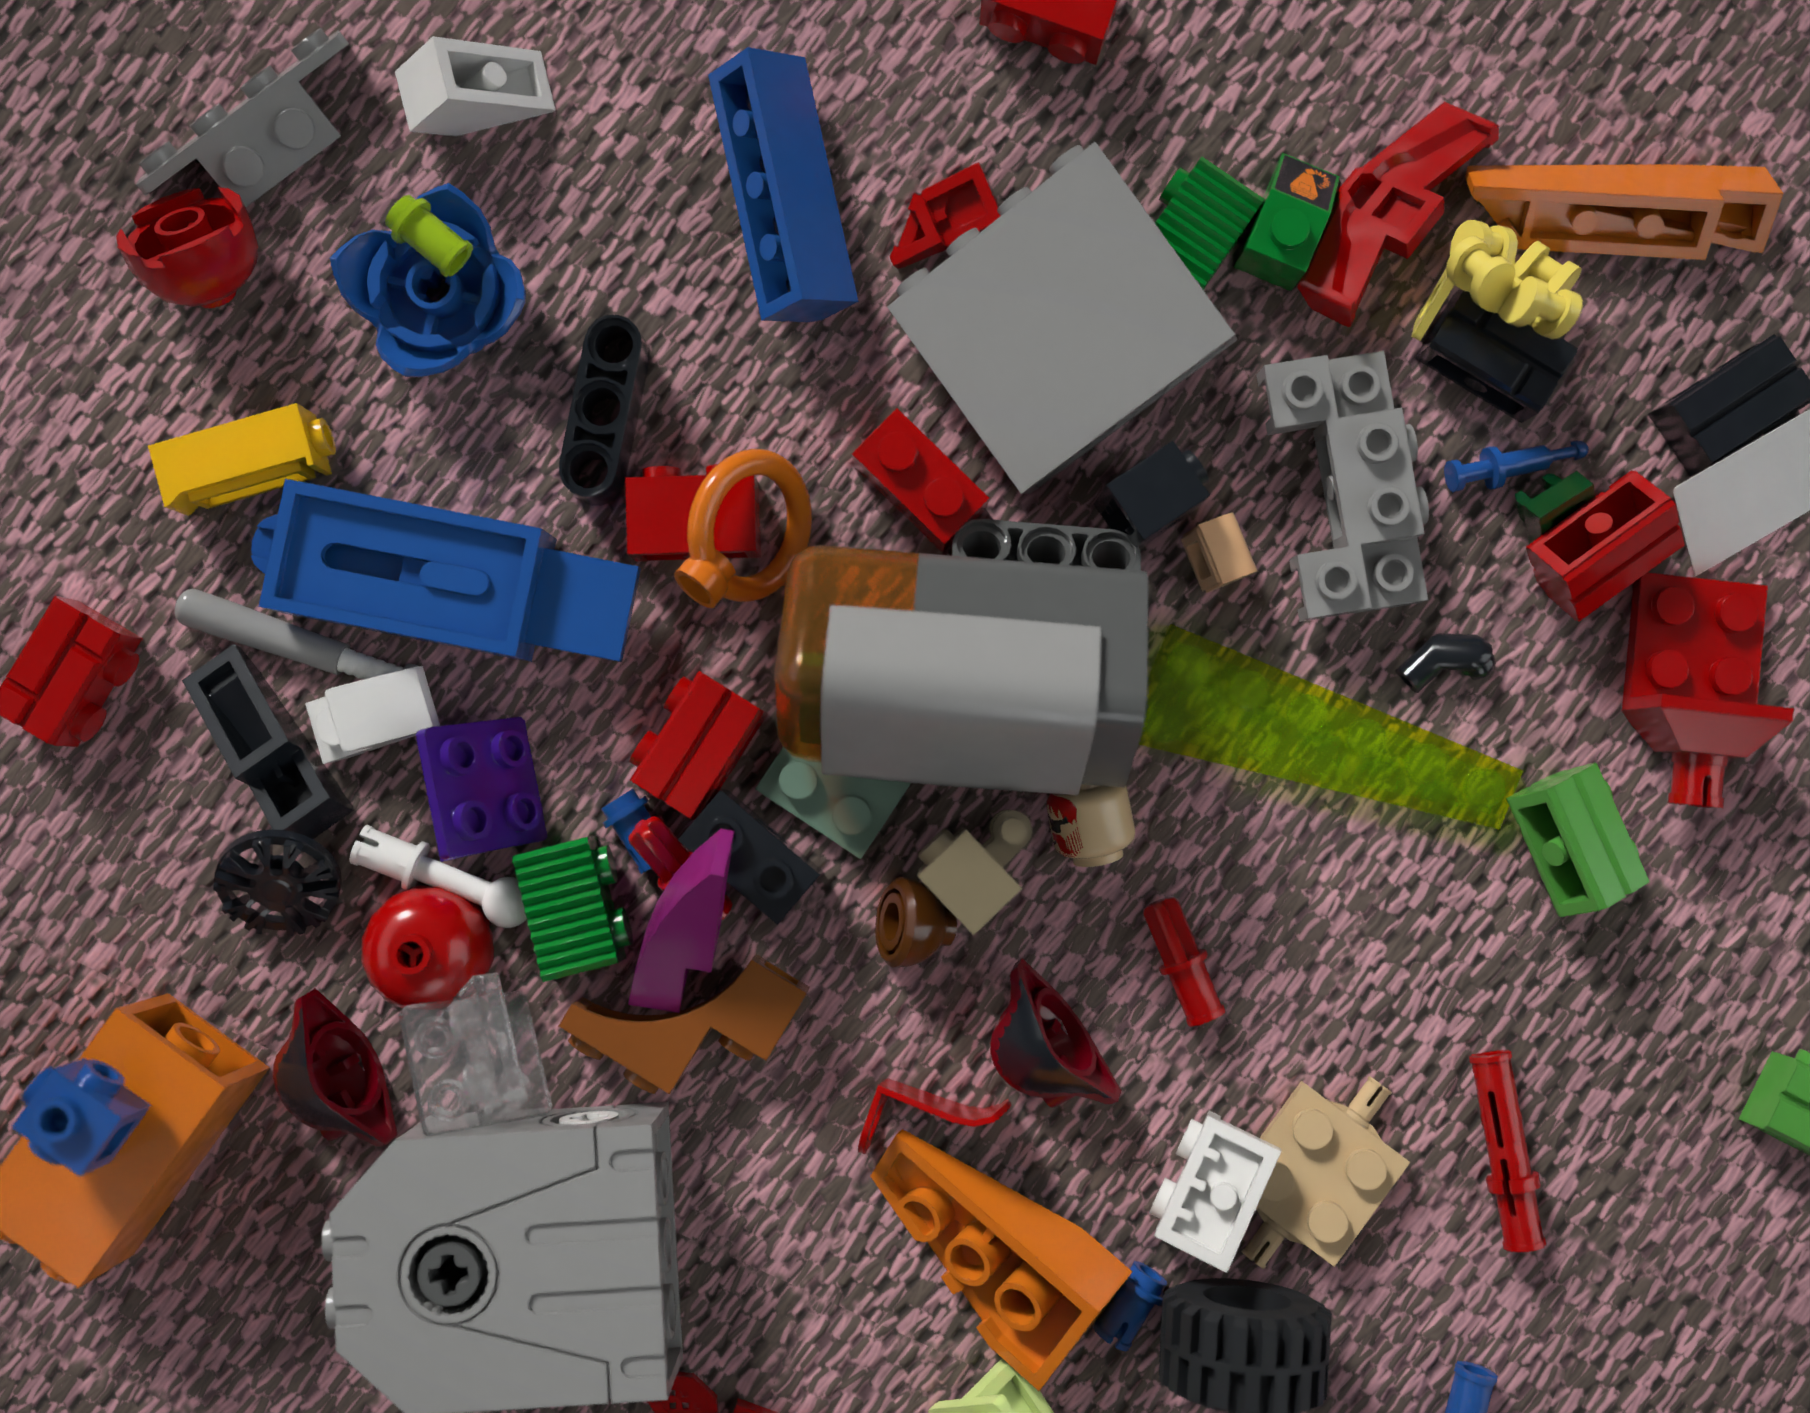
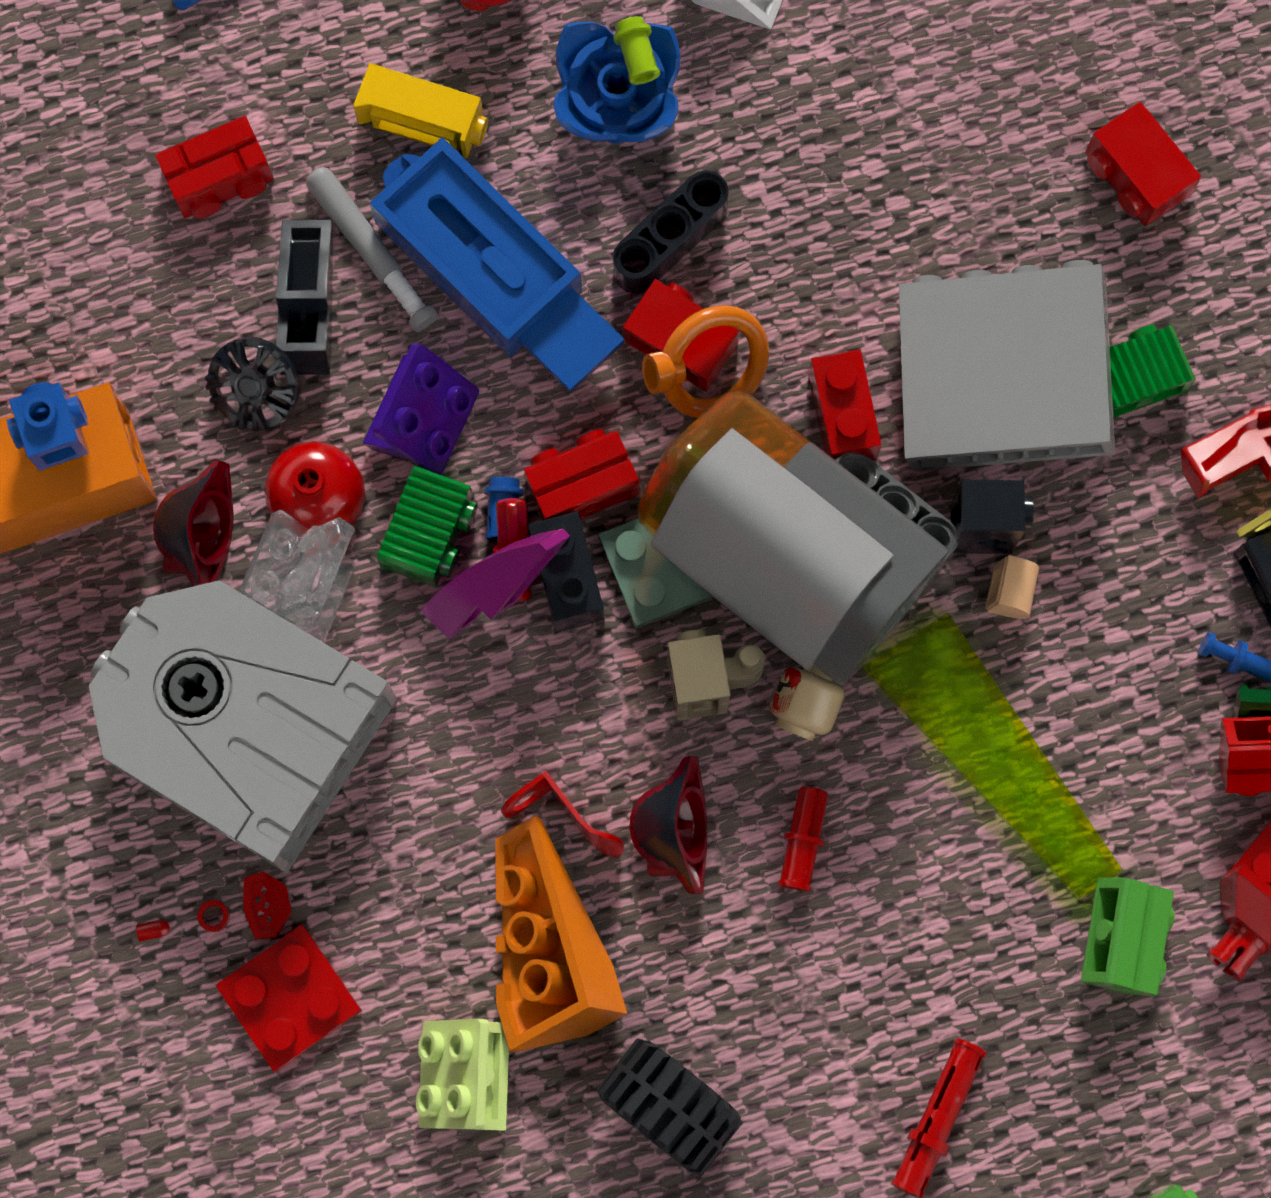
camera: 35 degrees right, 10 degrees down
(371, 713) = (386, 318): white slope -> none
(410, 864) = (342, 431): white pin -> none
(660, 1047) = (497, 669): dark orange arch -> none
(774, 127) = (883, 169): blue brick -> none
(911, 923) = (641, 689): reddish brown brick -> none
(945, 214) = (977, 251): red slope -> none
(1131, 1306) = (612, 1041): blue pin -> none
(1215, 1191) = (720, 997): white bracket -> none
(1288, 223) = (1203, 405): green slope -> none
(1327, 1173) = (798, 1044): tan plate -> none
(1365, 478) = (1144, 606): light grey bracket -> none
(1442, 651) = (1123, 757): black arm -> none

